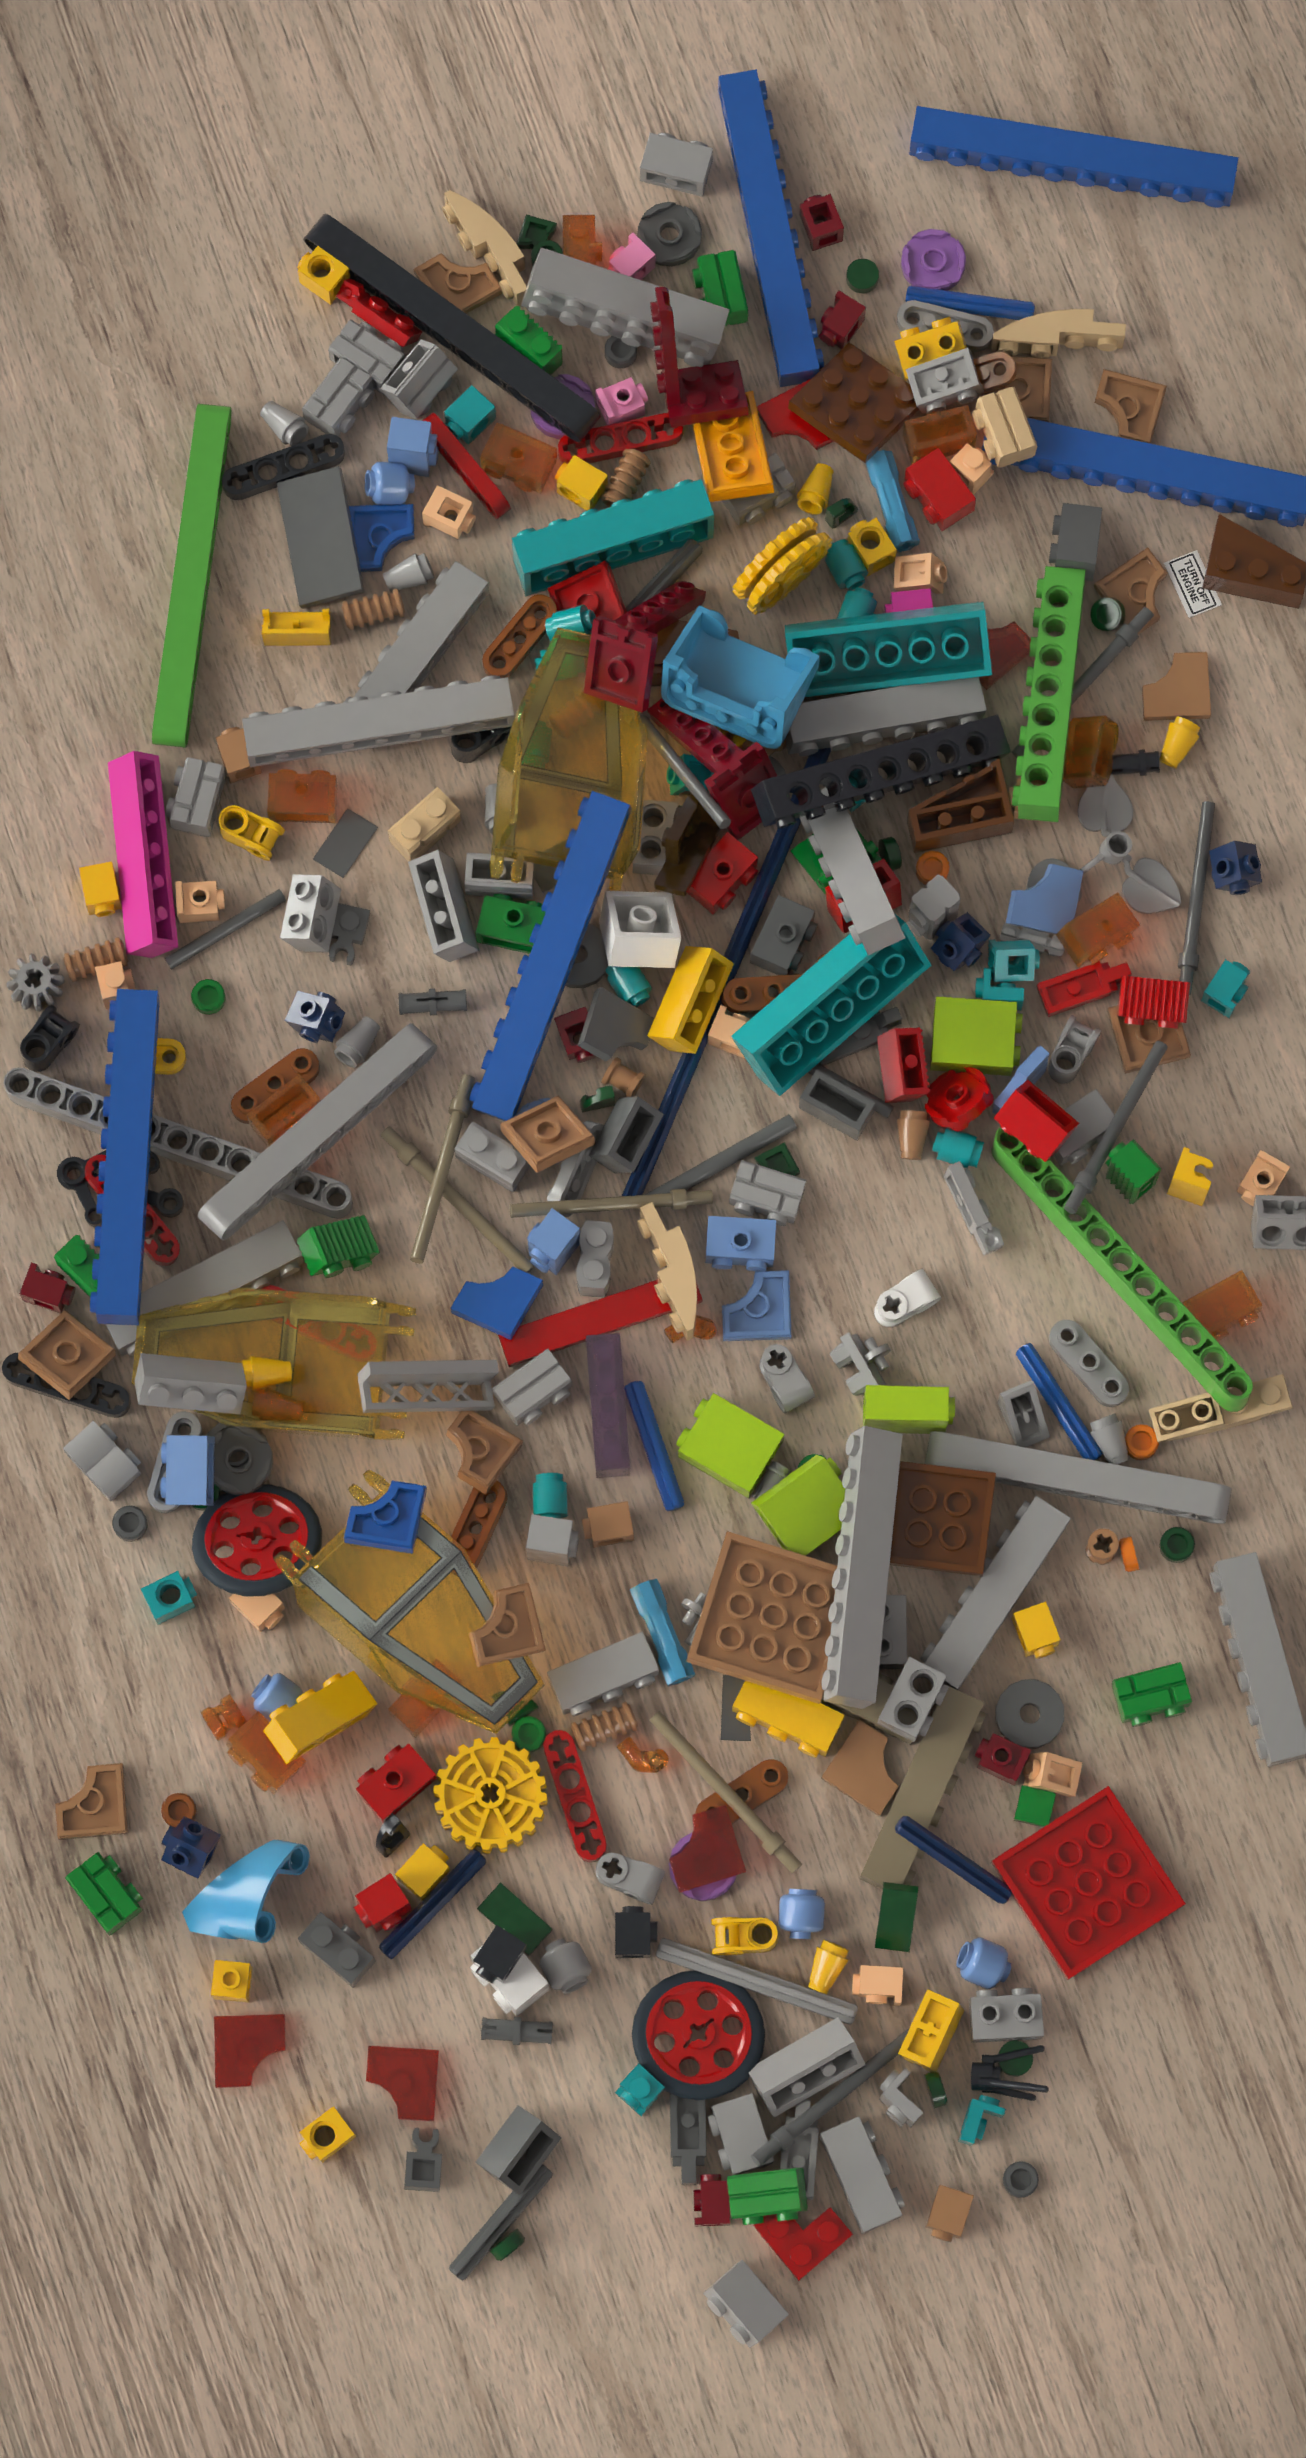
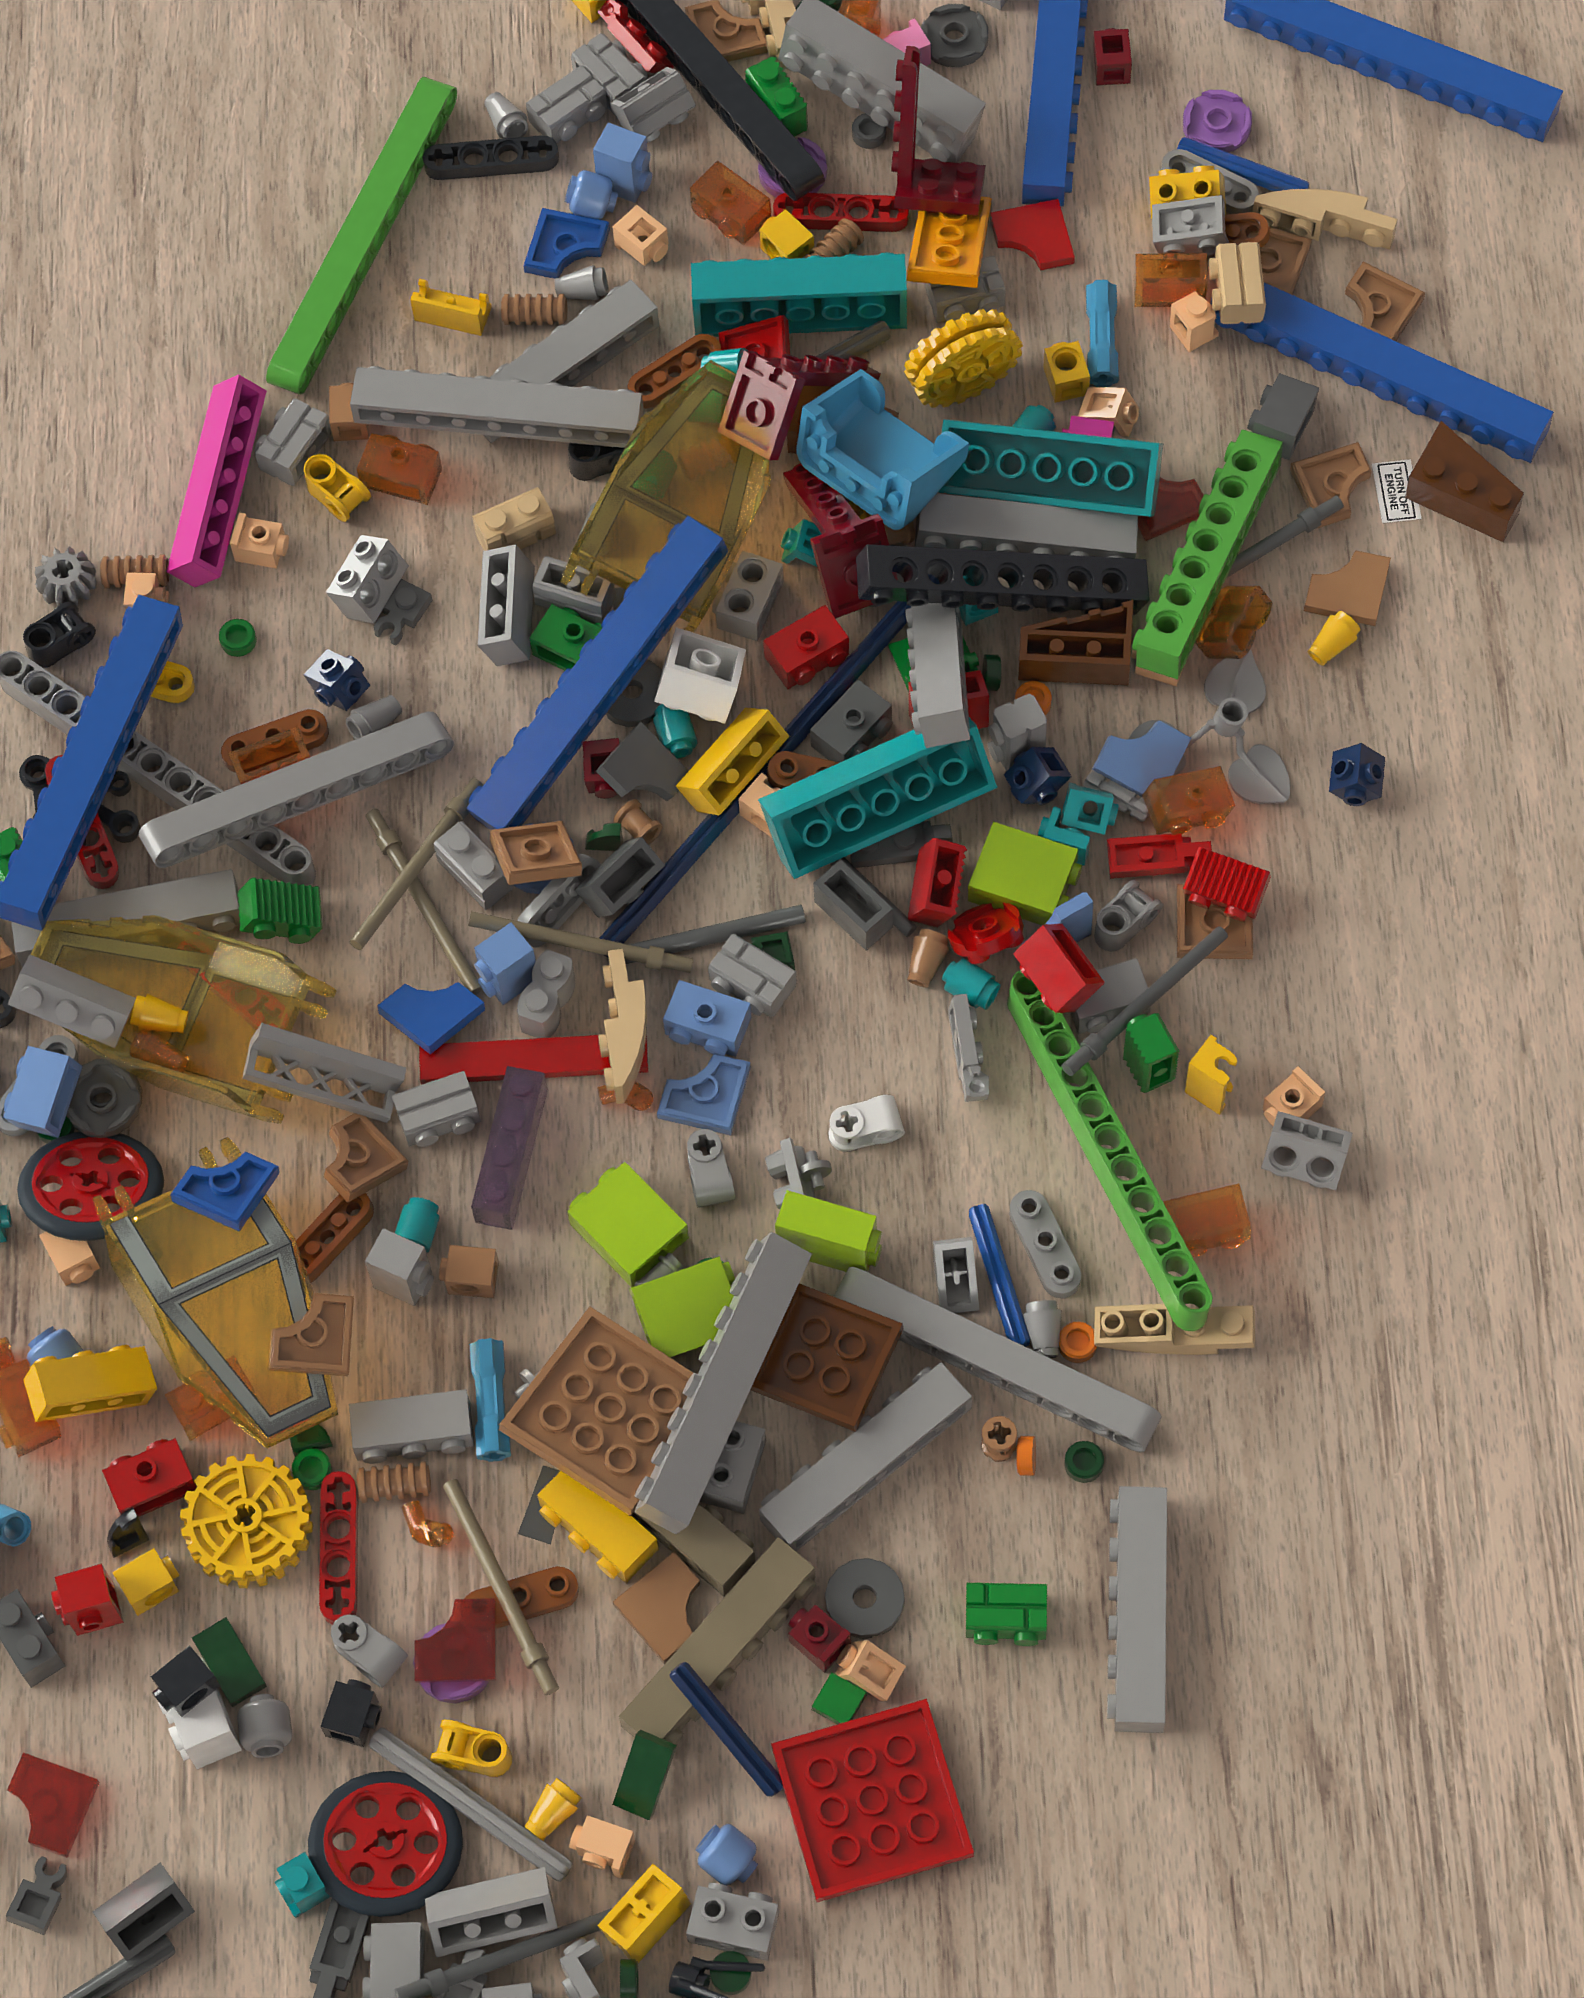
camera: 20 degrees right, 10 degrees down
(100, 889) = (162, 503): yellow brick -> none
(225, 929) = (276, 577): dark grey bar -> none
(320, 537) = (504, 230): dark grey tile -> none
(345, 843) = (430, 526): dark grey sticker -> none
(432, 1002) = (464, 698): dark grey pin -> none
(432, 1904) = (145, 1620): dark blue axle -> none
(468, 469) = (675, 200): red beam -> none
(469, 415) = (693, 151): teal brick -> none
(516, 2030) = (189, 1783): dark grey pin -> none
(619, 411) = (853, 174): bright pink brick -> none
(654, 1445) = (547, 1204): blue axle -> none
(684, 773) = (794, 529): dark grey bar -> none
(686, 847) = (777, 602): dark brown bracket -> none
(722, 284) = (993, 83): green brick -> none
(801, 1913) = (542, 1741): medium blue head -> none
(815, 491) = (1025, 305): yellow cone -> none
(840, 512) = (1044, 331): dark green tile -> none
(841, 321) = (1104, 153): dark red brick -> none
(846, 565) = (1033, 381): teal brick -> none
(855, 402) = (1091, 229): reddish brown plate -> none
(862, 275) = (1139, 118): dark green tile -> none
(906, 1696) = (725, 1534): light grey brick -> none
(939, 490) = (1153, 332): red brick -> none
(1036, 1630) = (898, 1508): yellow brick -> none
(1107, 614) = (1295, 495): dark green tile -> none
(1136, 763) = (1280, 648): black pin -> none
(1188, 959) = (1280, 856): dark grey bar -> none
(1226, 987) = (1311, 894): teal brick -> none

